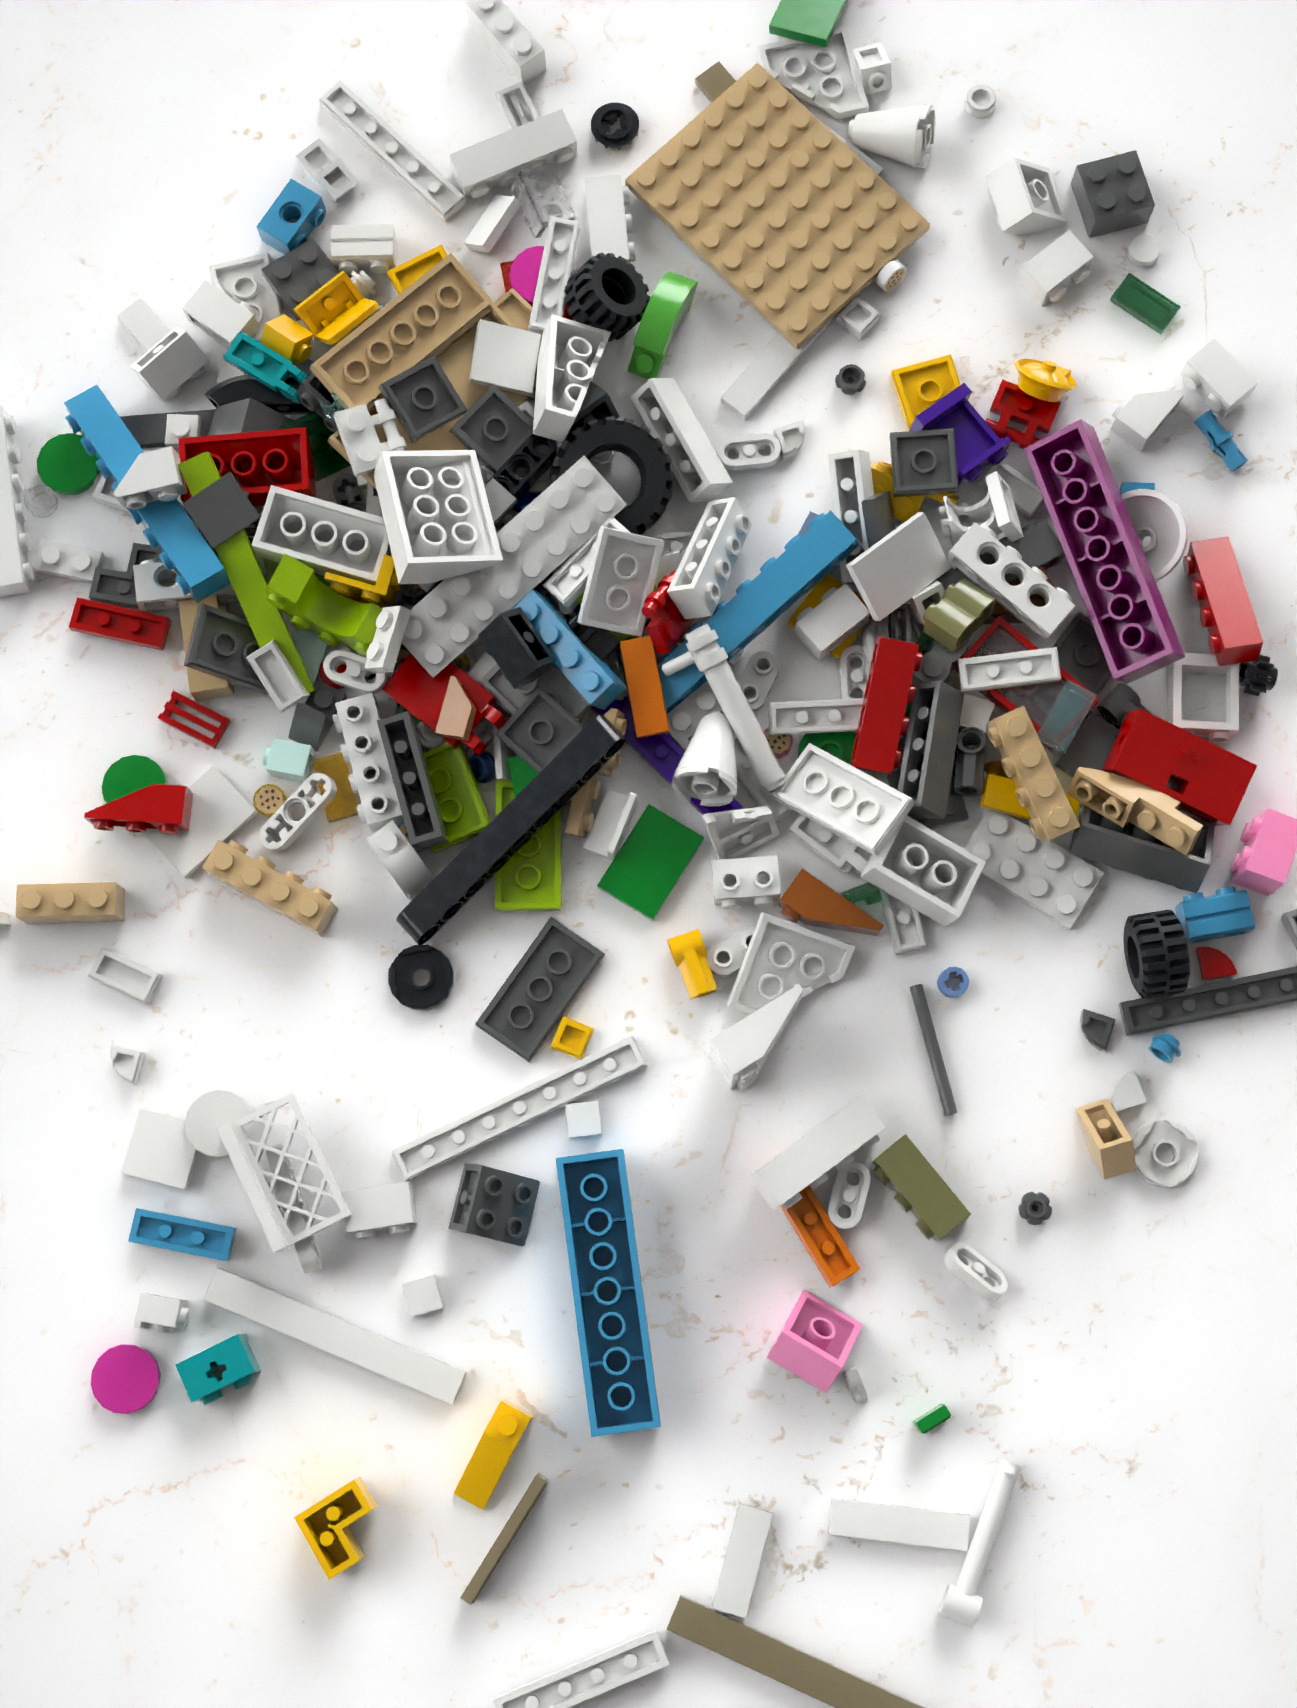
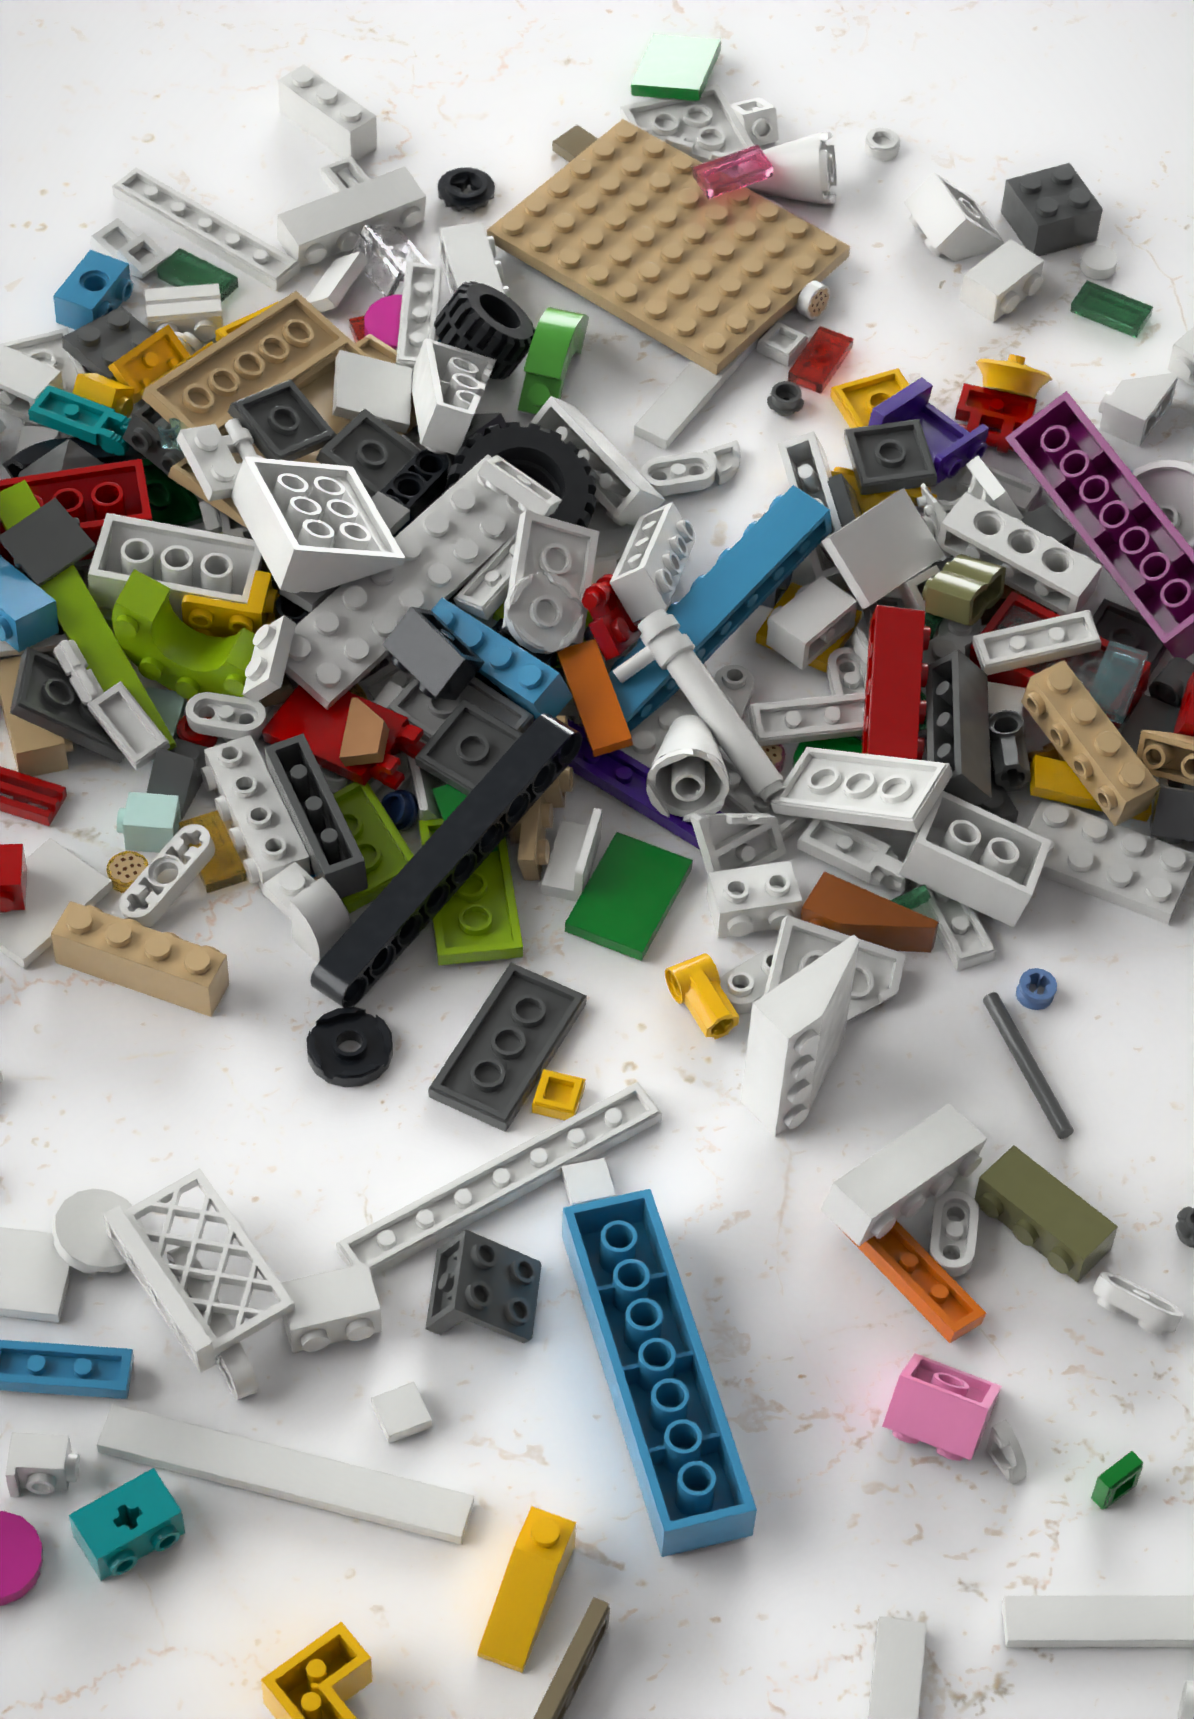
camera: 15 degrees left, 25 degrees down
(238, 619) = (74, 664): none -> white piece
(380, 202) = (189, 270): none -> clear green tile
(603, 496) = (507, 479): none -> white plate
(610, 614) = (543, 613): none -> white tile
(840, 138) = (732, 171): none -> clear pink tile
(887, 337) = (820, 359): none -> clear red plate

